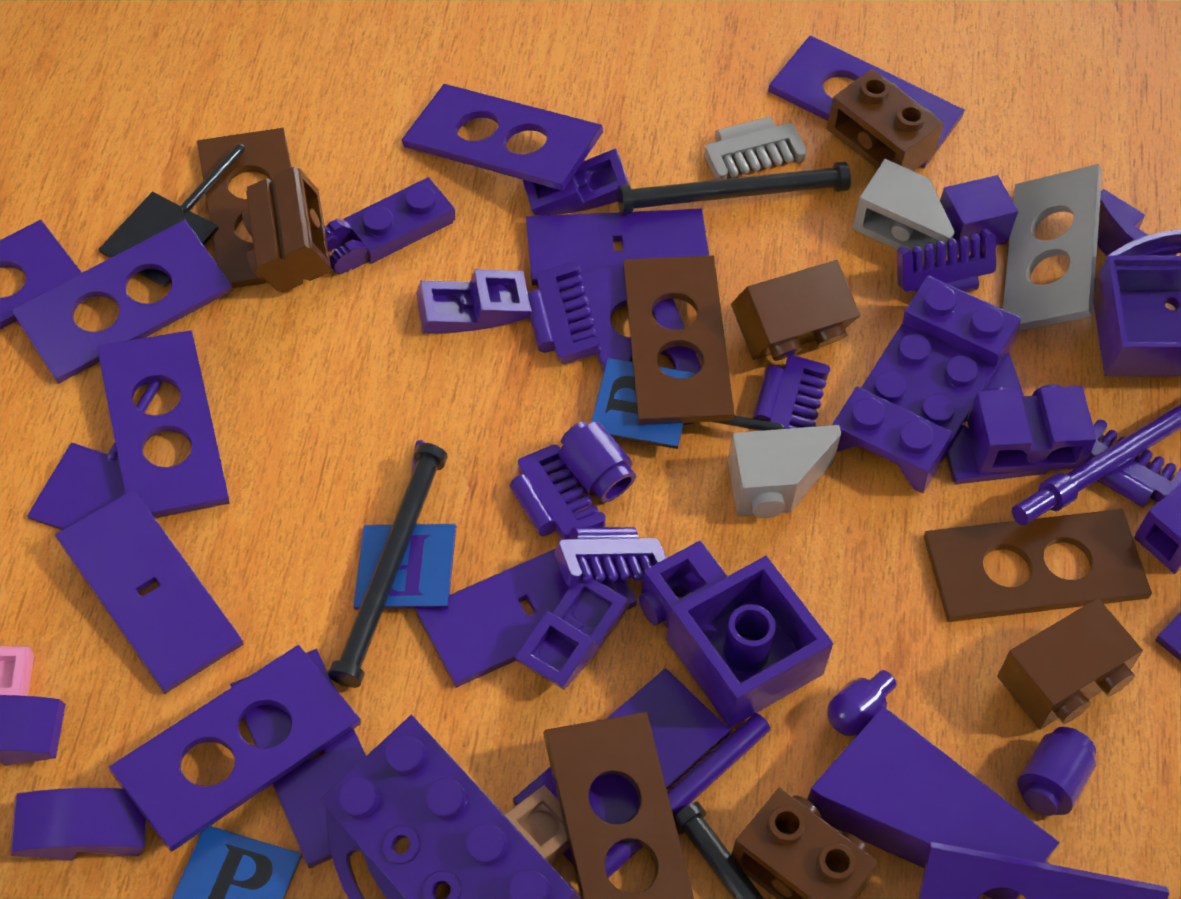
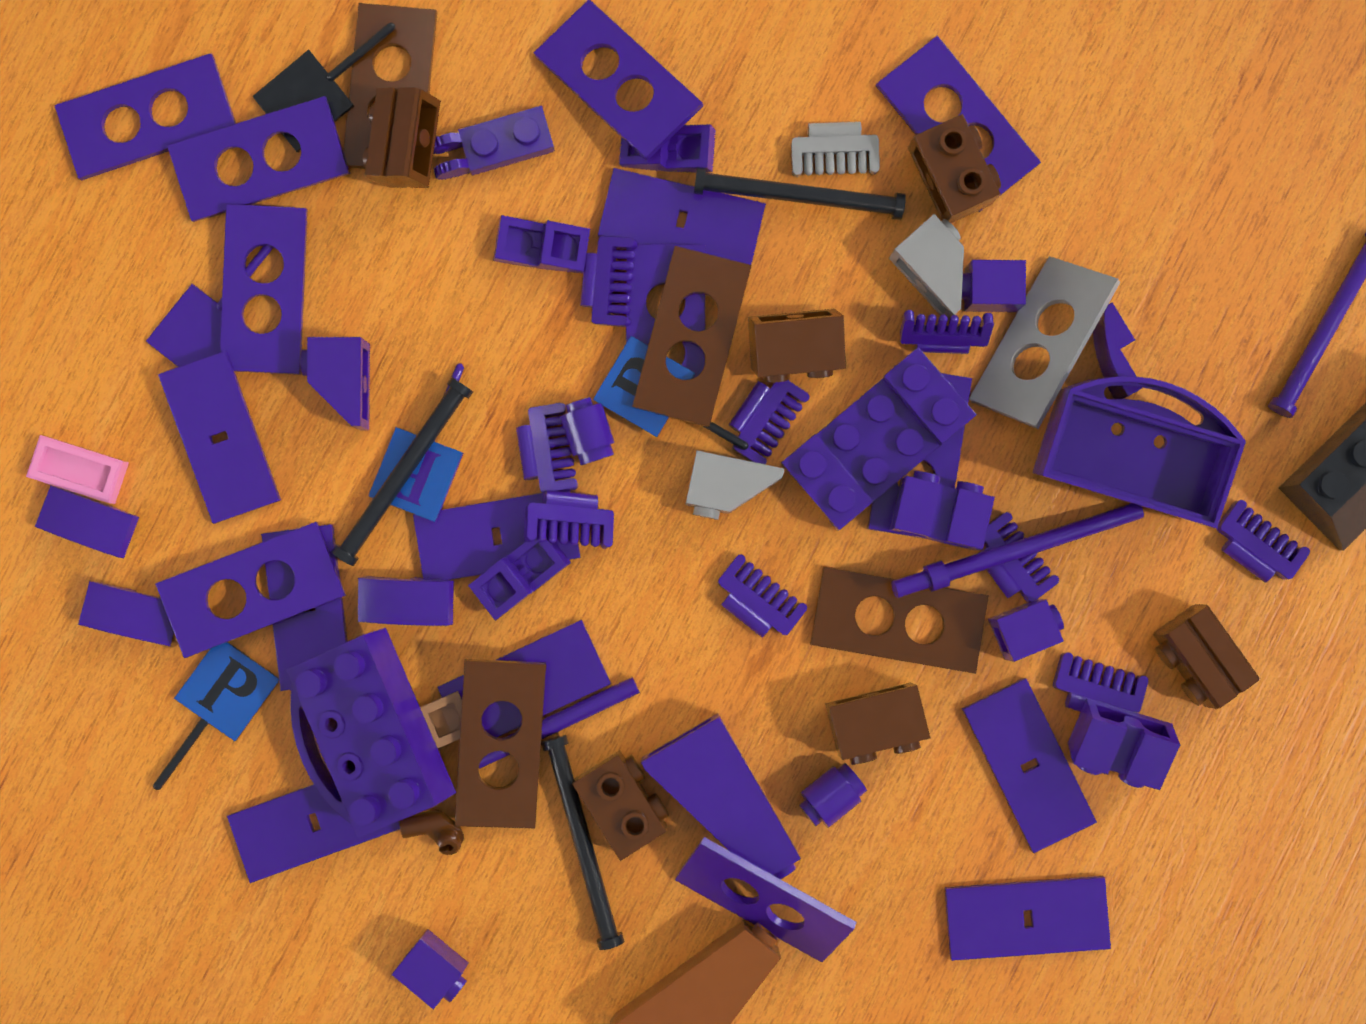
camera: 20 degrees right, 30 degrees up
(282, 480) = (341, 375): none -> dark purple slope
(444, 698) = (405, 601): none -> dark purple slope
(675, 577) = (630, 562): dark purple brick -> none
(748, 641) = (641, 630): dark purple brick -> none
(859, 702) = (711, 696): dark purple cylinder -> none
(862, 596) = (753, 609): none -> dark purple piece

